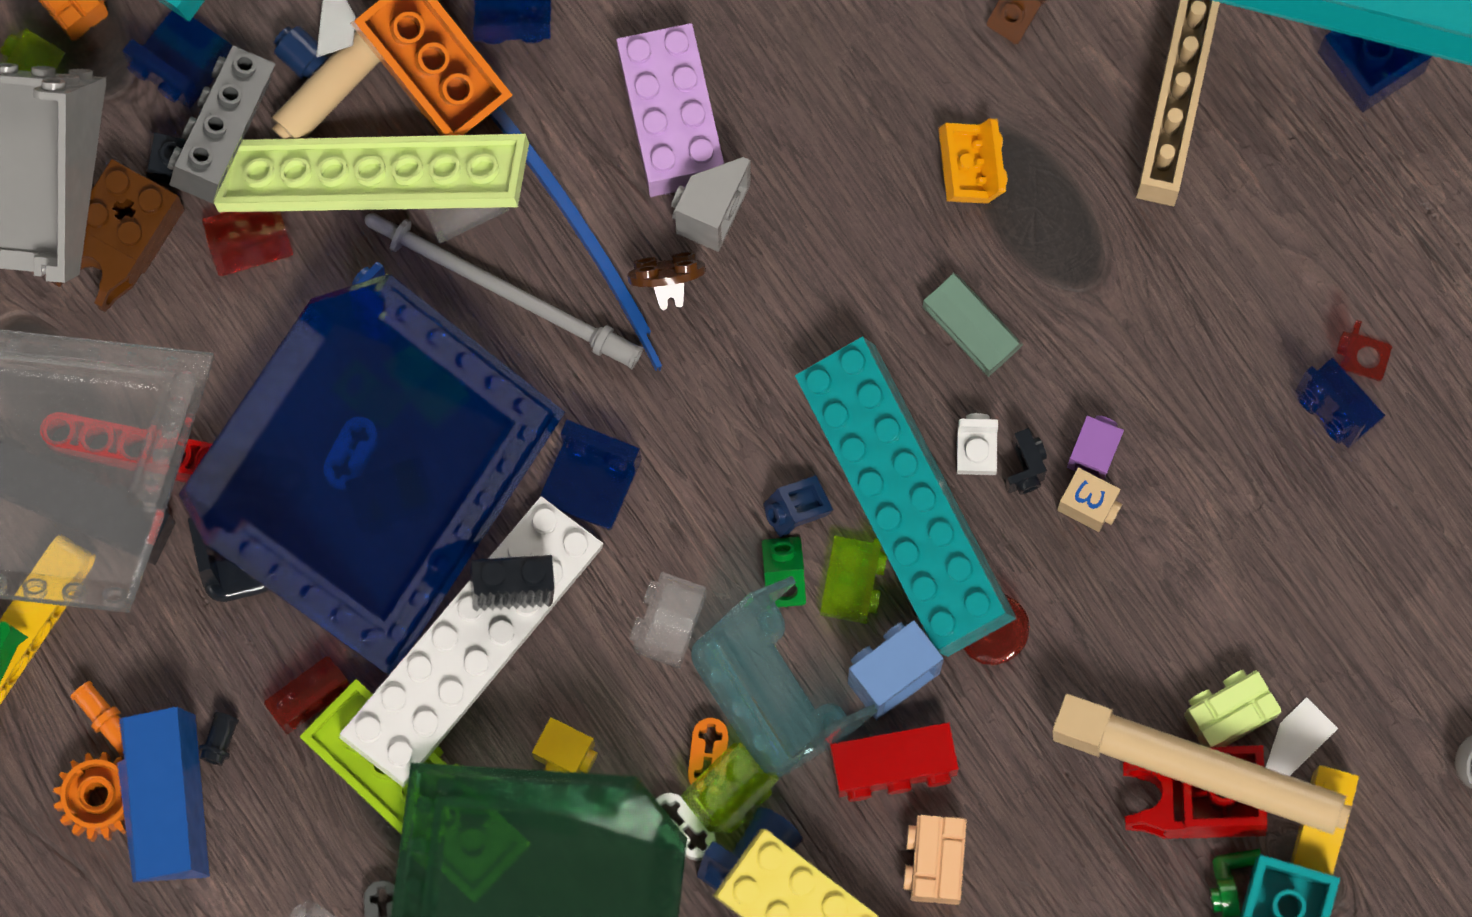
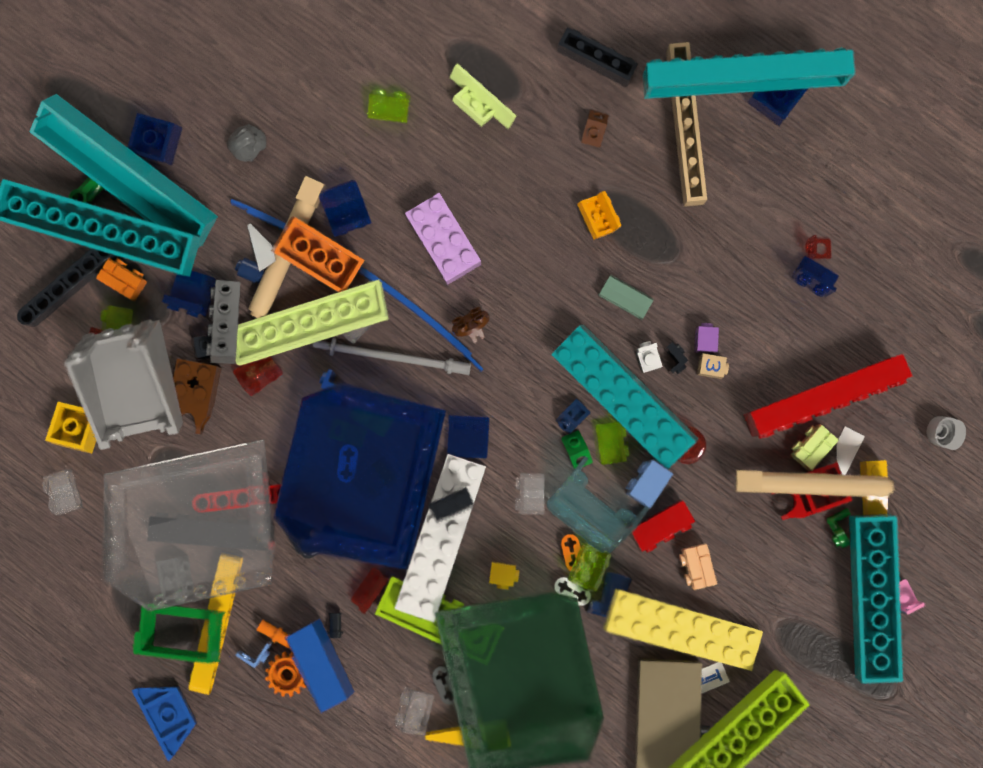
camera: 20 degrees left, 10 degrees up
(63, 748) = (262, 657): none -> medium blue bracket
(711, 202) = (479, 281): light grey slope -> none
(1286, 622) = (832, 394): none -> red brick

